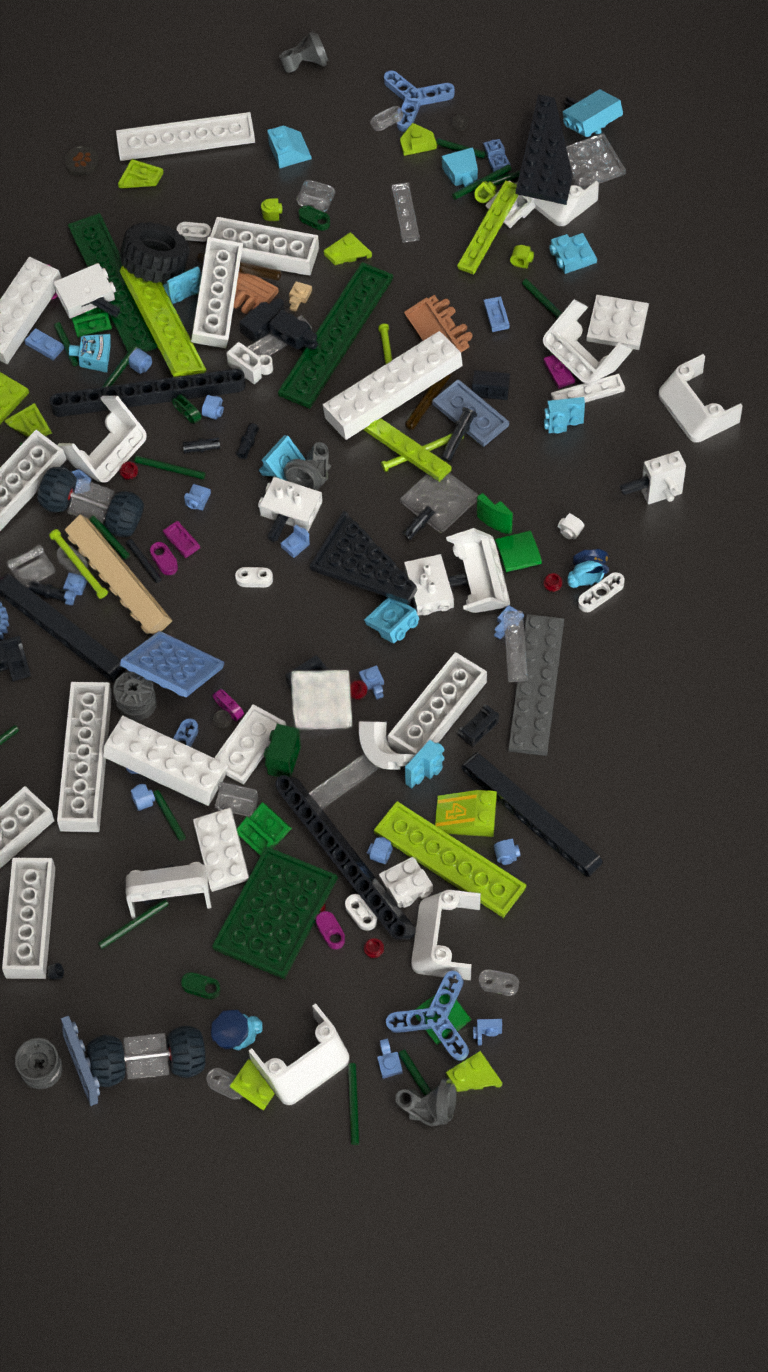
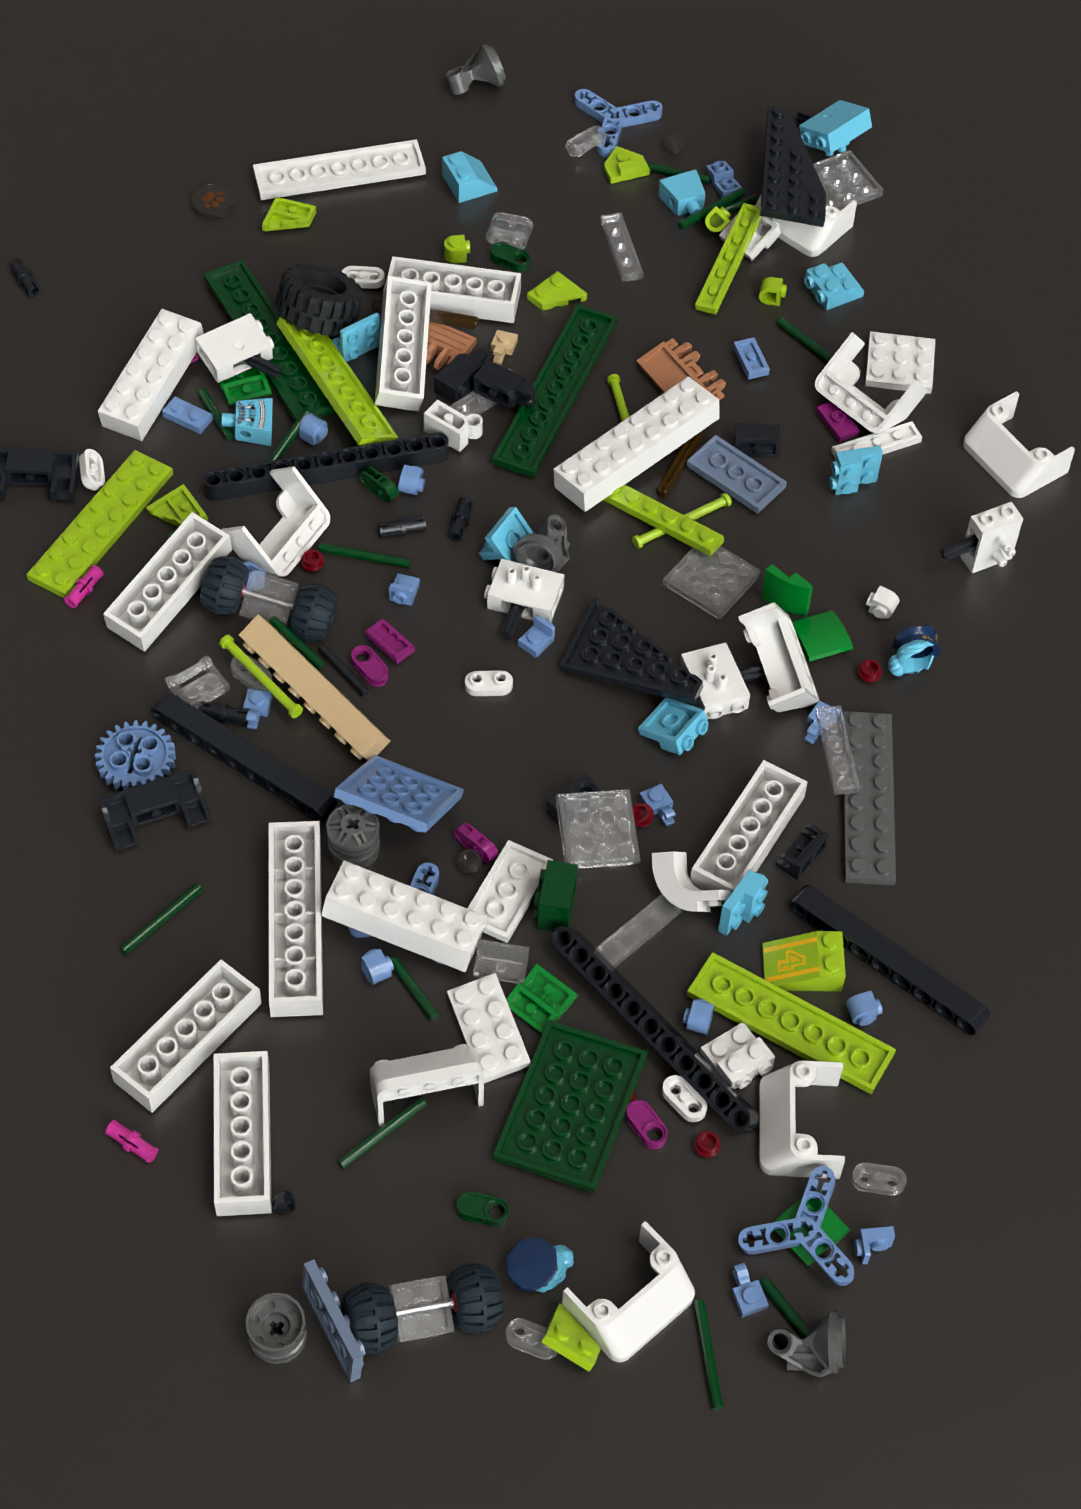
camera: 10 degrees left, 5 degrees down
(418, 522) = (691, 606): black pin -> none
(462, 426) = (730, 489): black pin -> none
(473, 1074) = (864, 1302): lime wing -> none
(597, 599) = (934, 670): white beam -> none

